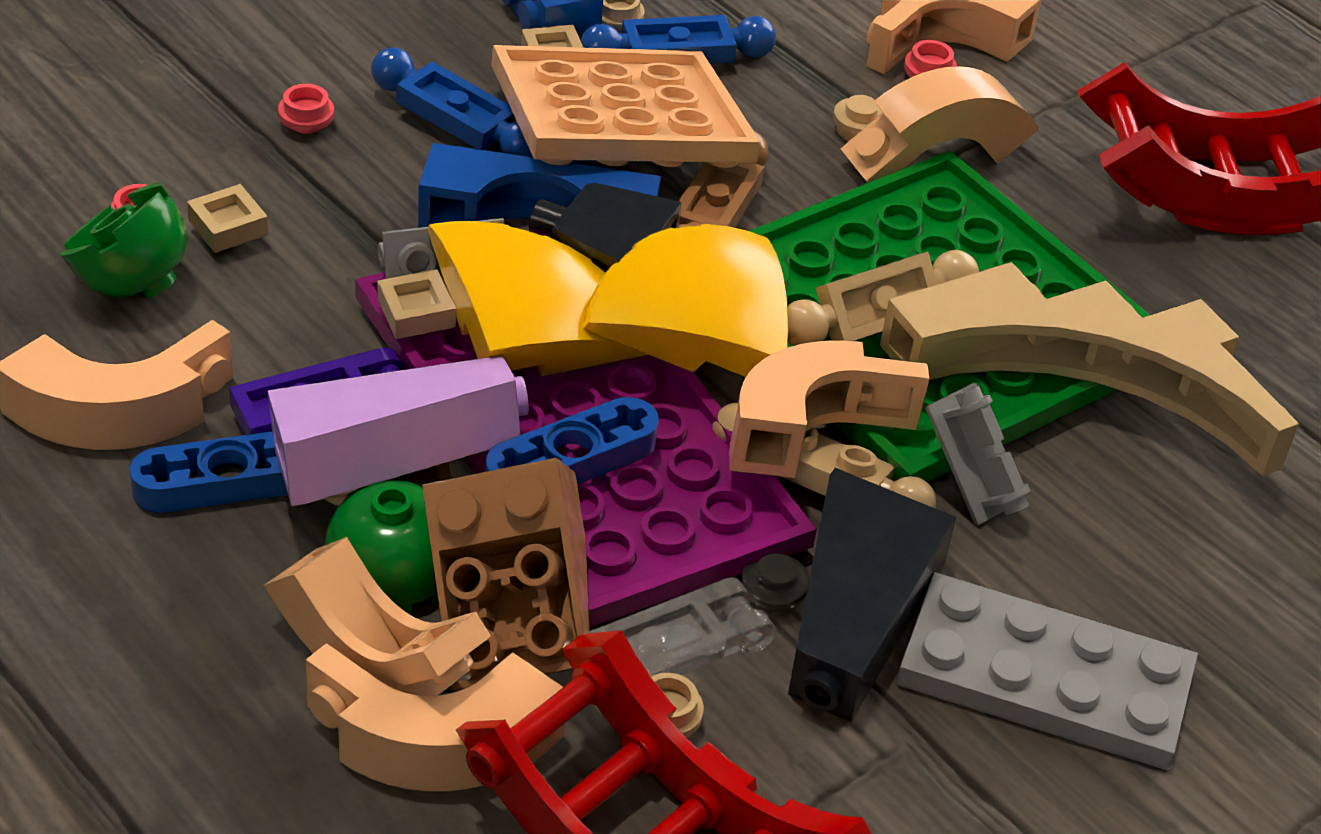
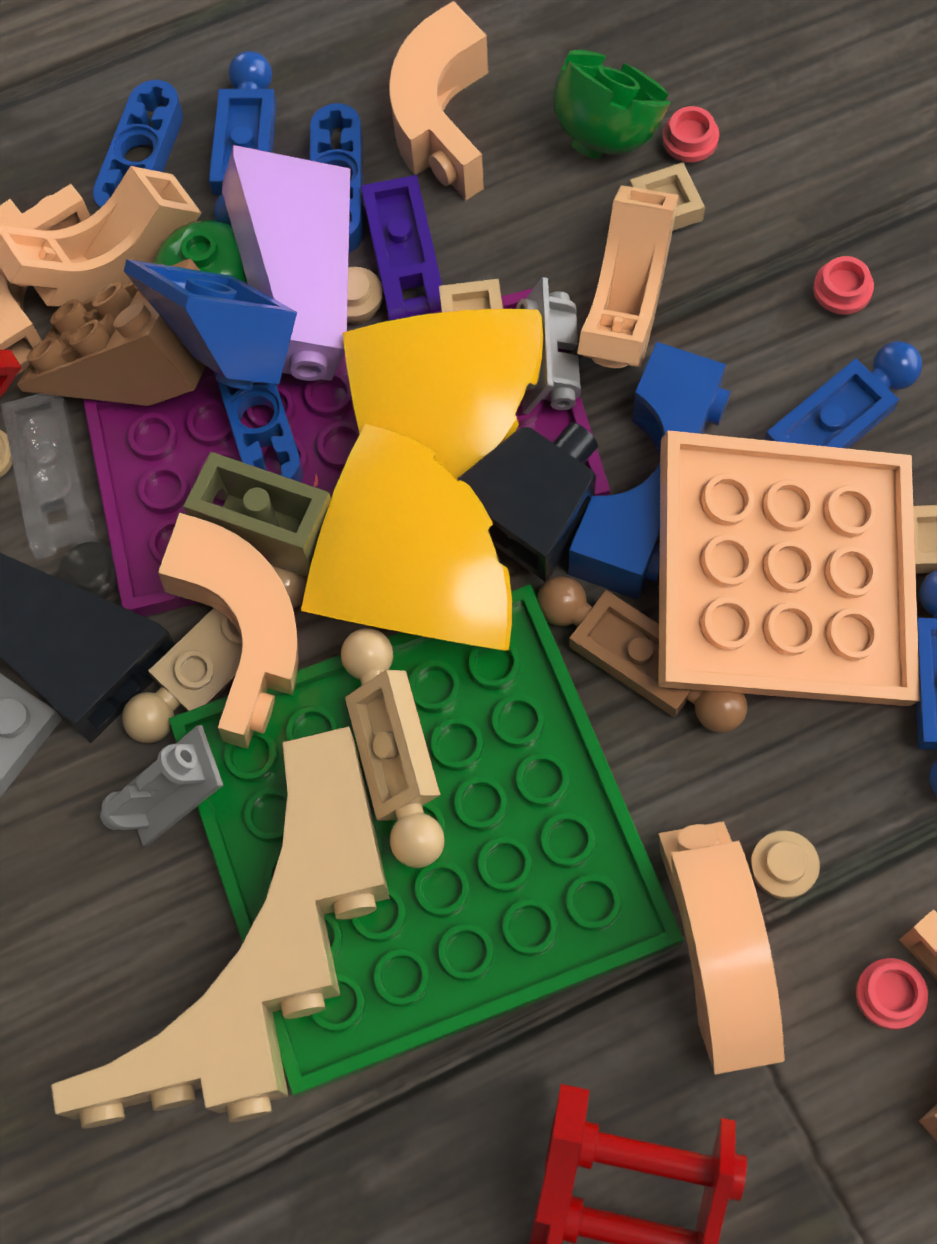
camera: 115 degrees right, 25 degrees up
(161, 672) = (135, 130): none -> blue beam
(187, 550) = (242, 118): none -> blue plate
(338, 228) = (629, 278): none -> light nougat arch
(513, 414) = (219, 321): none -> blue slope
(699, 406) = (263, 508): none -> olive brick

